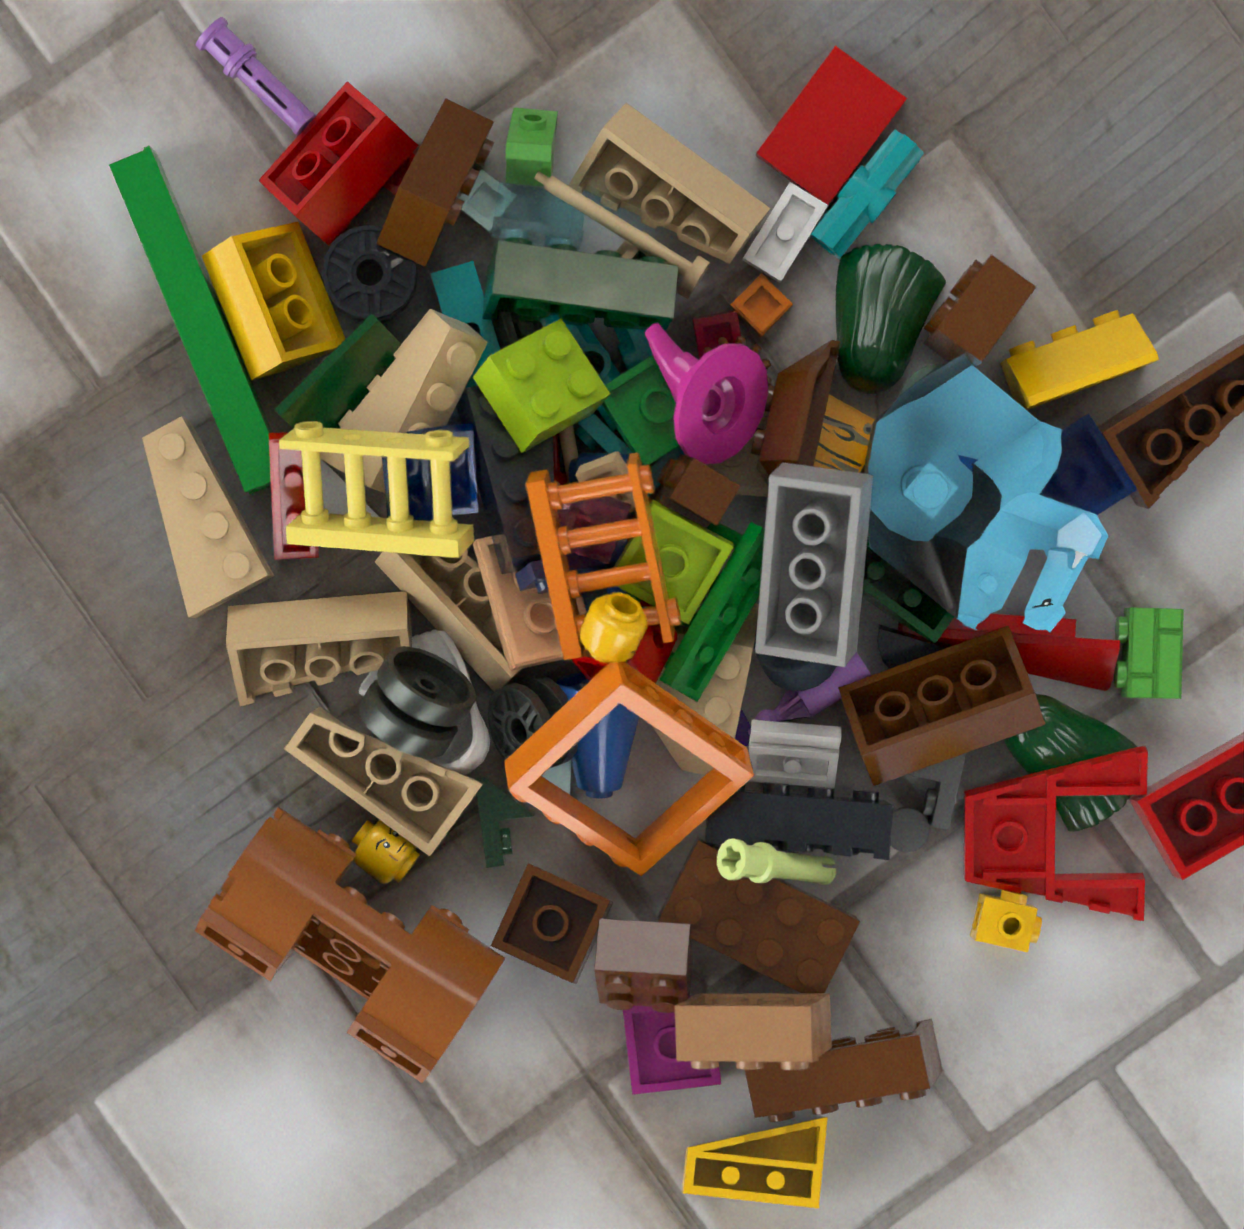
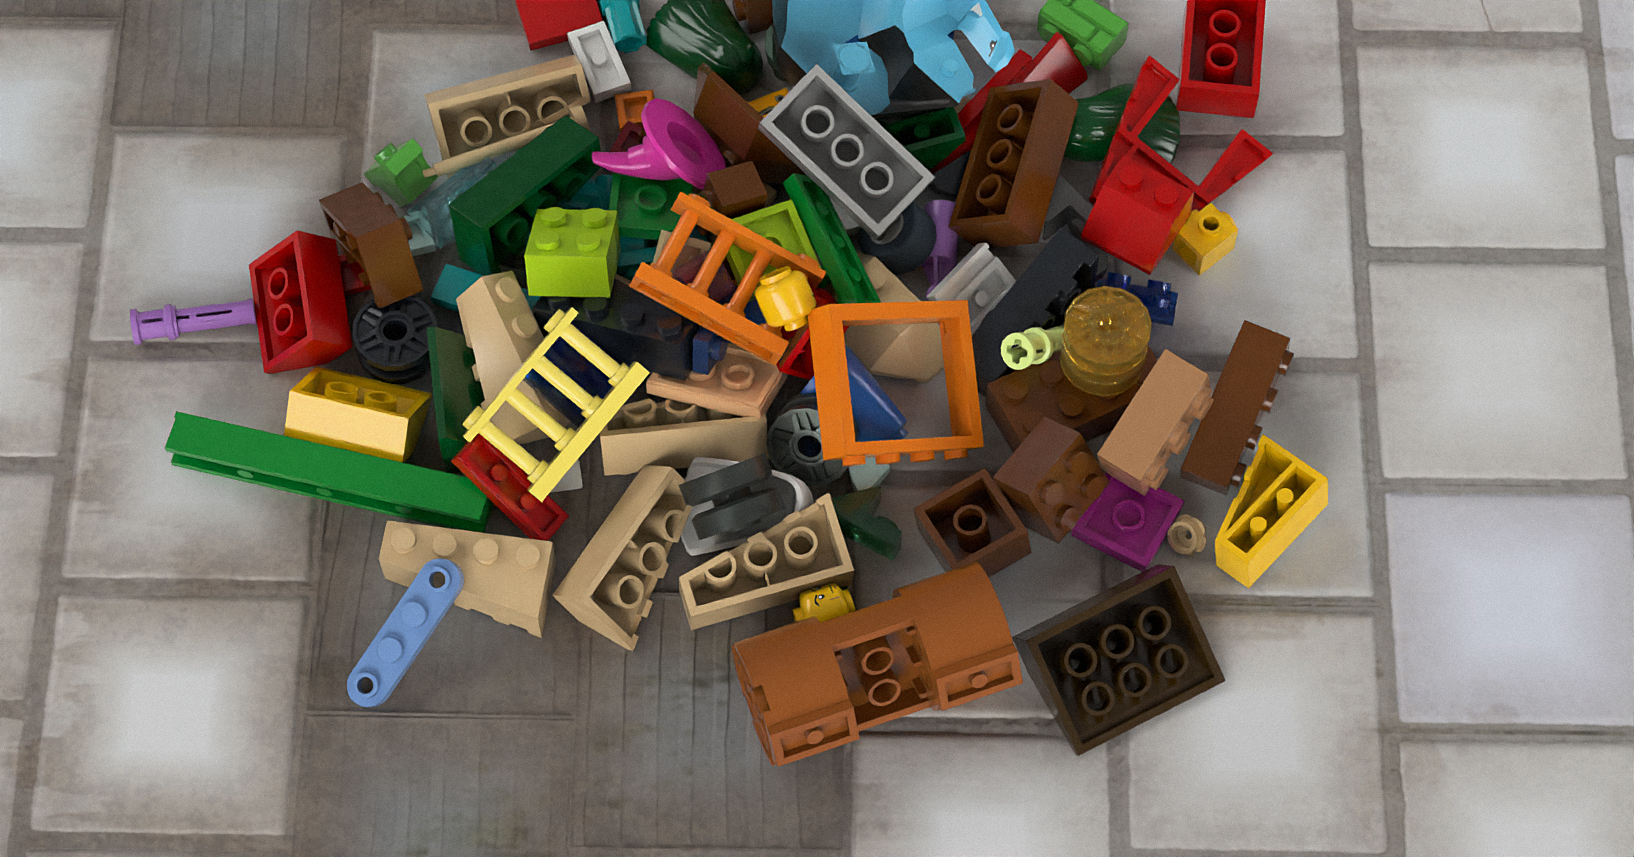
camera: 55 degrees left, 25 degrees down
(99, 511) = (405, 632): none -> medium blue plate
(533, 1127) = (1120, 658): none -> dark brown slope
(691, 1107) = (1179, 538): none -> tan plate
(782, 910) = (1105, 340): none -> clear yellow wheel
(887, 908) = (1156, 296): none -> clear blue slope
(964, 859) = (1137, 215): none -> red slope

